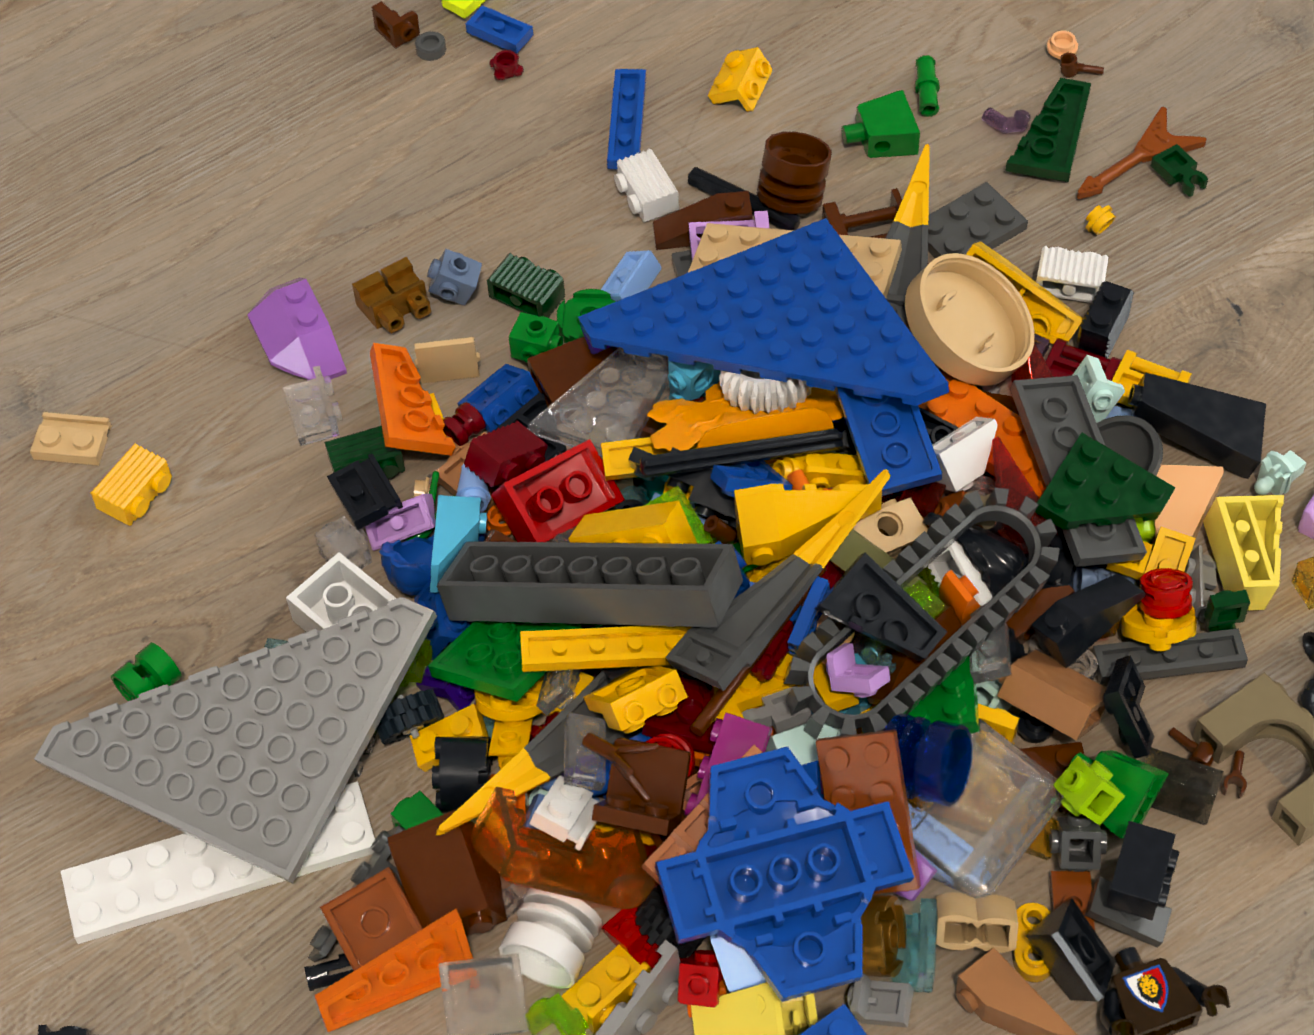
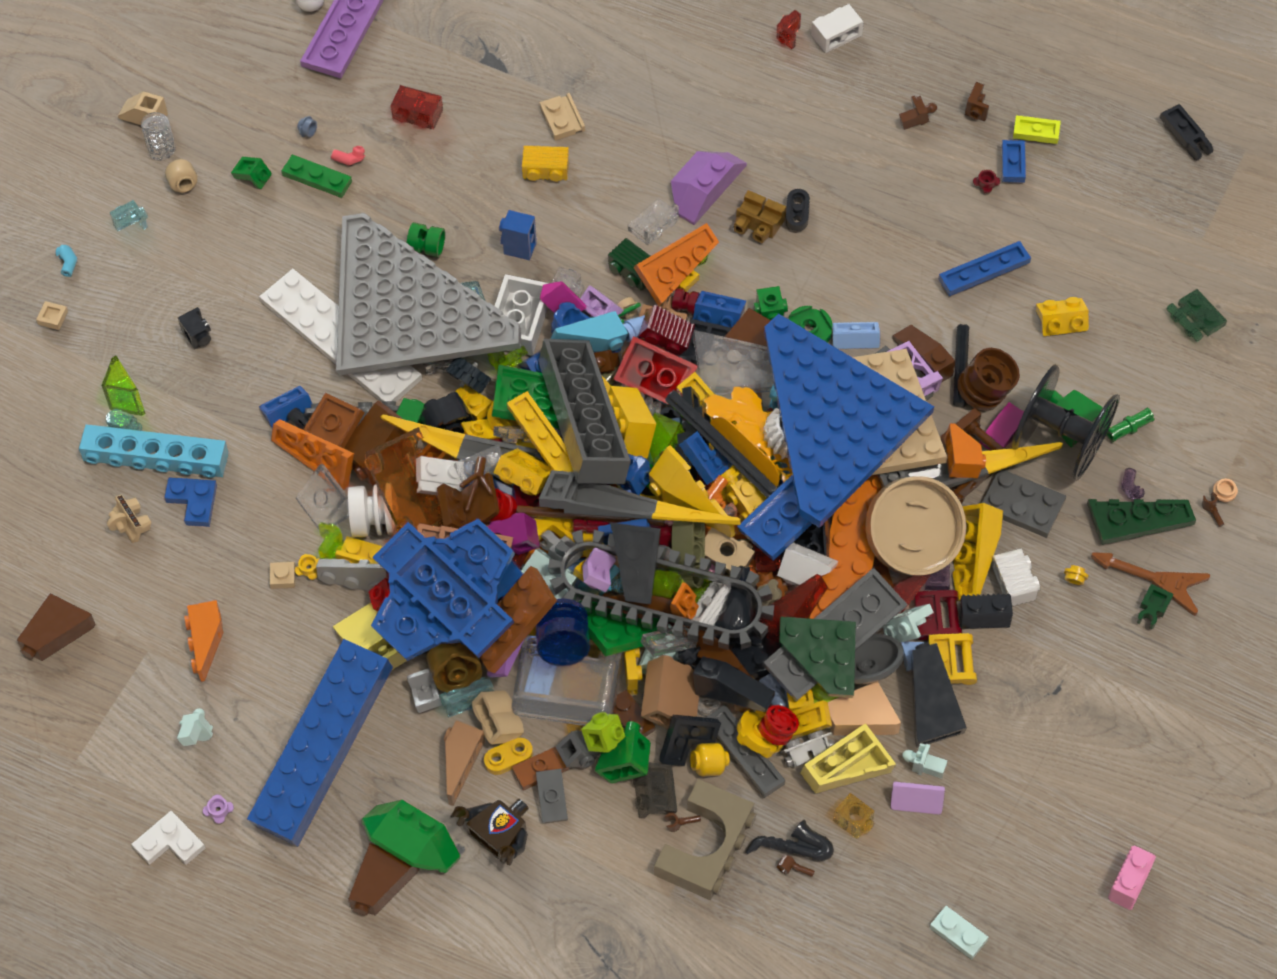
camera: 60 degrees right, 5 degrees up
(147, 154) = (787, 27): none -> clear red bracket
(181, 102) = (837, 28): none -> white brick
(229, 558) = (518, 234): none -> blue brick
(284, 985) = (280, 406): none -> blue slope
(363, 80) = (918, 115): none -> reddish brown piece
(364, 491) = (601, 275): black plate -> none
(364, 550) = (557, 293): none -> dark pink slope
(416, 251) = (797, 211): none -> black plate
(430, 46) = (976, 132): dark grey tile -> none
(447, 360) = (724, 268): tan piece -> none
(454, 276) = (792, 246): sand blue brick -> none
(526, 286) = (810, 282): dark green brick -> none
(646, 186) = (933, 306): white brick -> none
(858, 193) = (1004, 425): none -> dark pink slope
(898, 222) = (963, 454): none -> orange slope
(946, 104) = (1065, 422): none -> black piece
(1073, 953) = (505, 774): black slope -> none
(1143, 871) = (569, 784): black brick -> none
(1166, 699) = (709, 759): none -> yellow head
(1201, 752) = (683, 795): reddish brown hand -> none
(1226, 609) = (787, 764): dark green plate -> none

